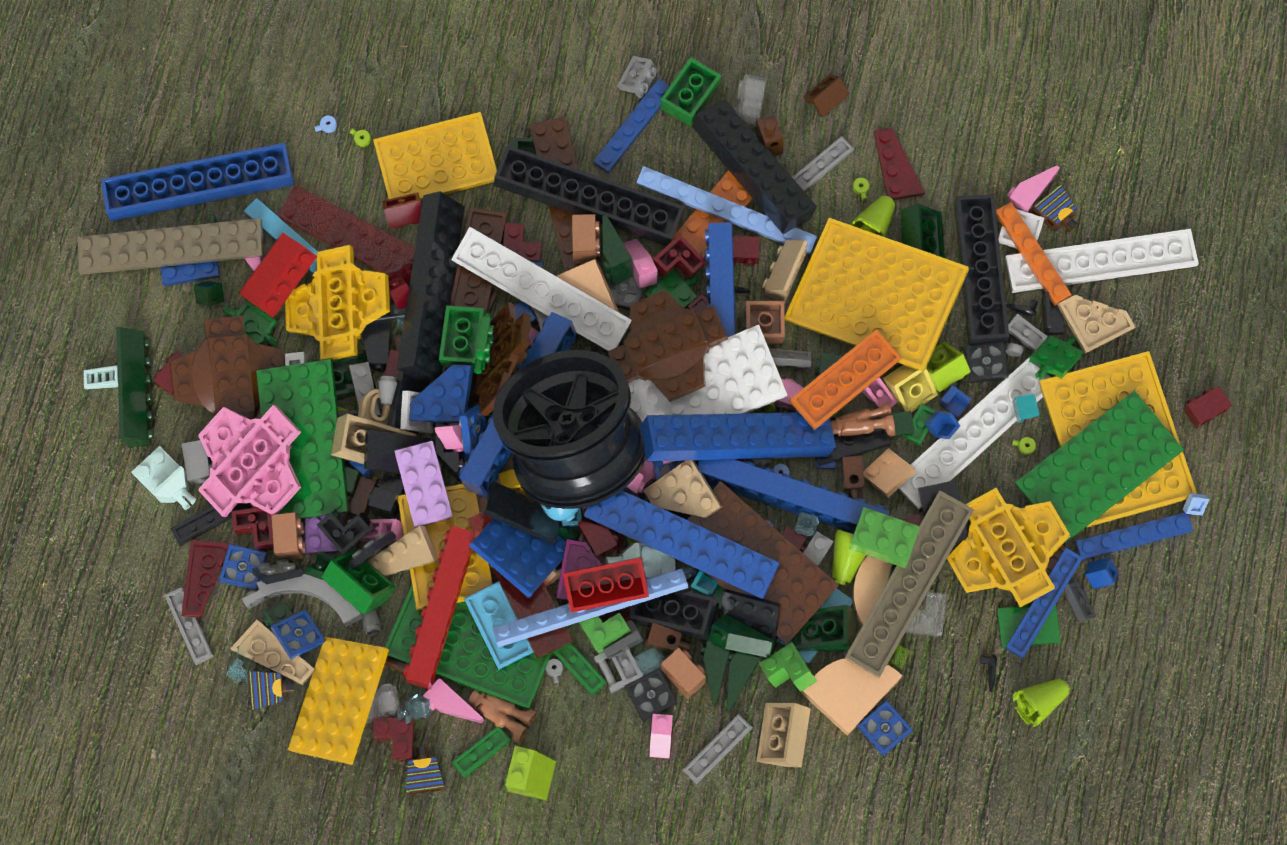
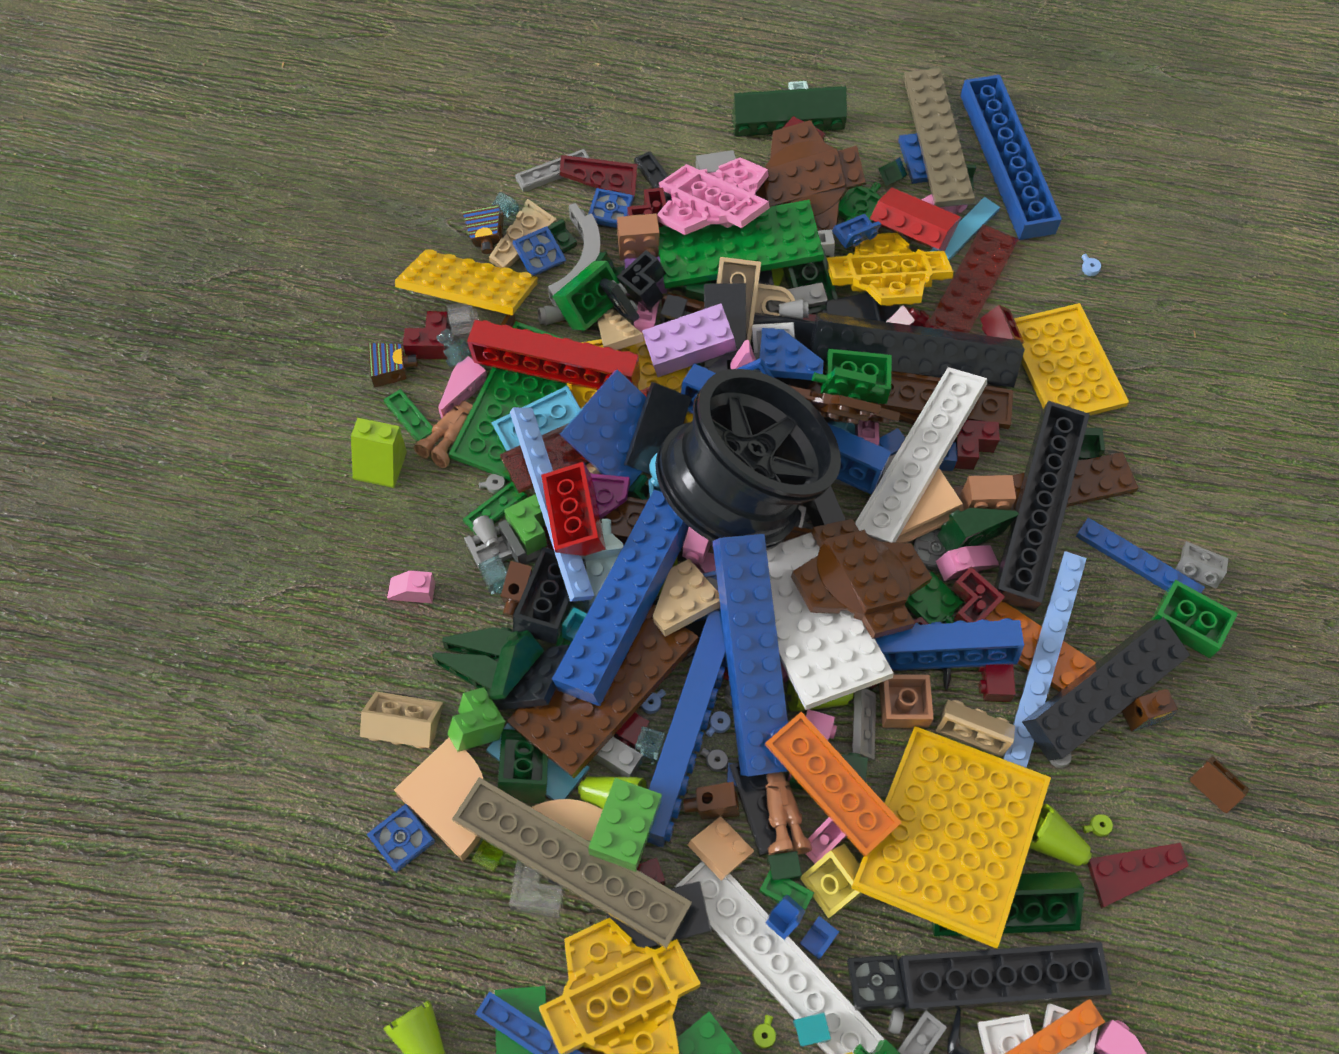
camera: 85 degrees right, 10 degrees down
(164, 478) = (699, 141): light aqua plate -> none
(277, 572) = (600, 227): piece -> none
(288, 330) = (856, 230): none -> blue bracket
(361, 134) = (1081, 295): lime piece -> none
(599, 539) = (627, 511): dark red slope -> none
(610, 669) = (485, 529): none -> light grey cone
(651, 694) = (458, 578): black piece -> none
(683, 672) = (477, 605): nougat brick -> none
(717, 749) = (393, 649): light grey tile -> none
(751, 98) = (1196, 690): clear brick -> none
(813, 471) = (715, 754): none -> light grey piece
(823, 163) = (1121, 776): light grey tile -> none
(946, 366) = (865, 923): lime slope -> none
(992, 662) = (474, 977): black bar -> none

